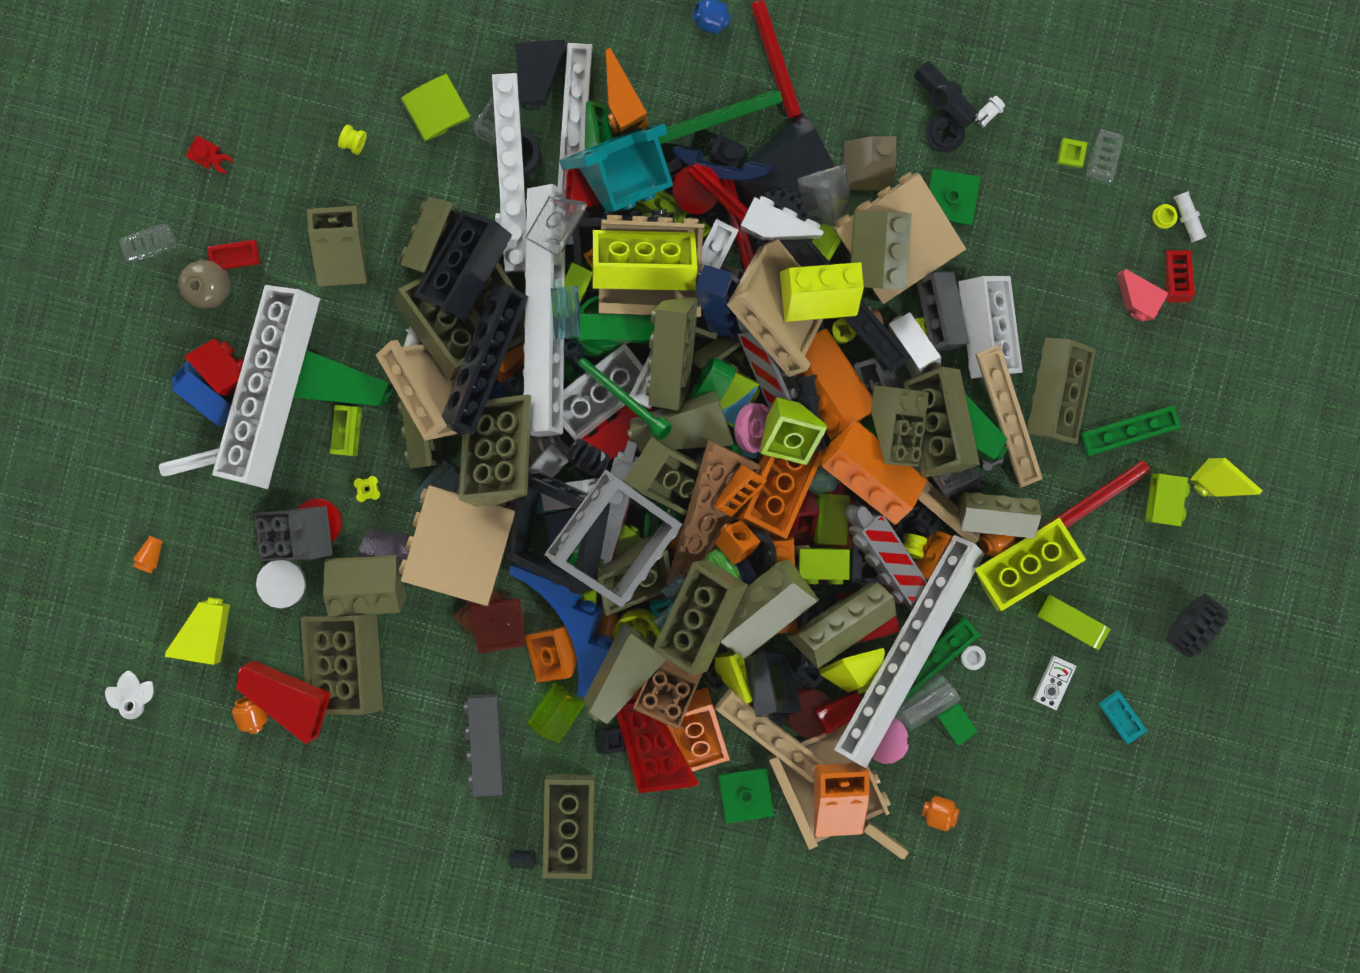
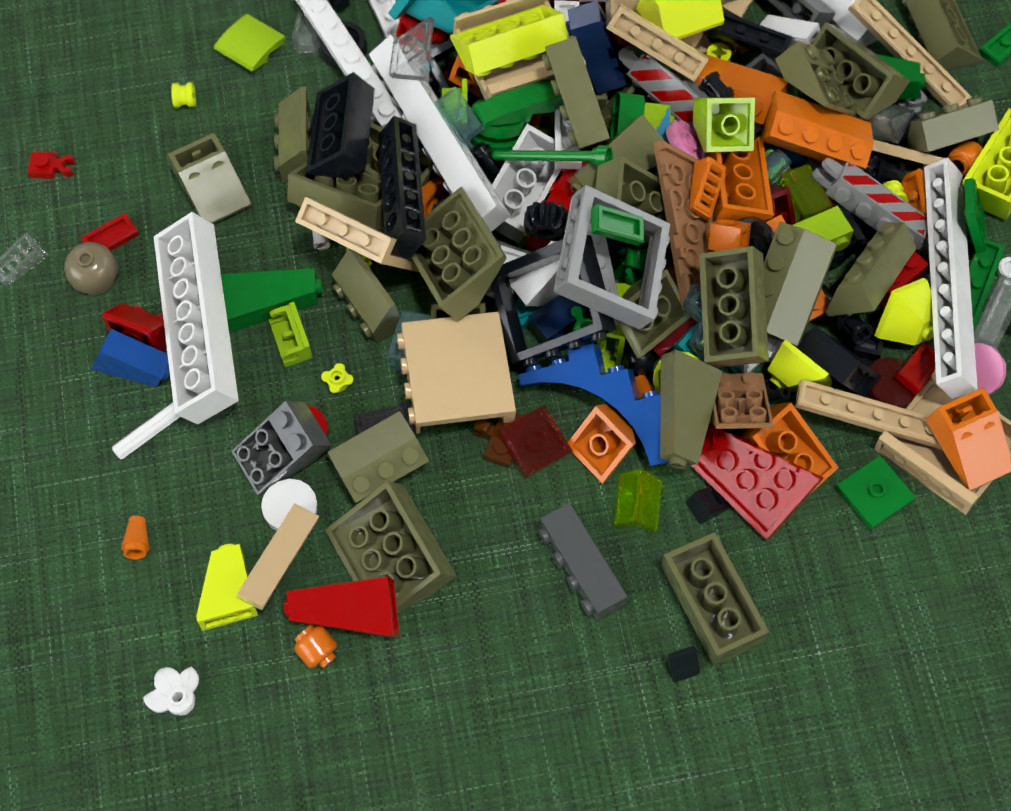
camera: 25 degrees left, 25 degrees down
(249, 631) = (278, 556): none -> tan tile
(627, 520) = (617, 225): none -> green tile
(966, 605) = (974, 215): none -> green plate

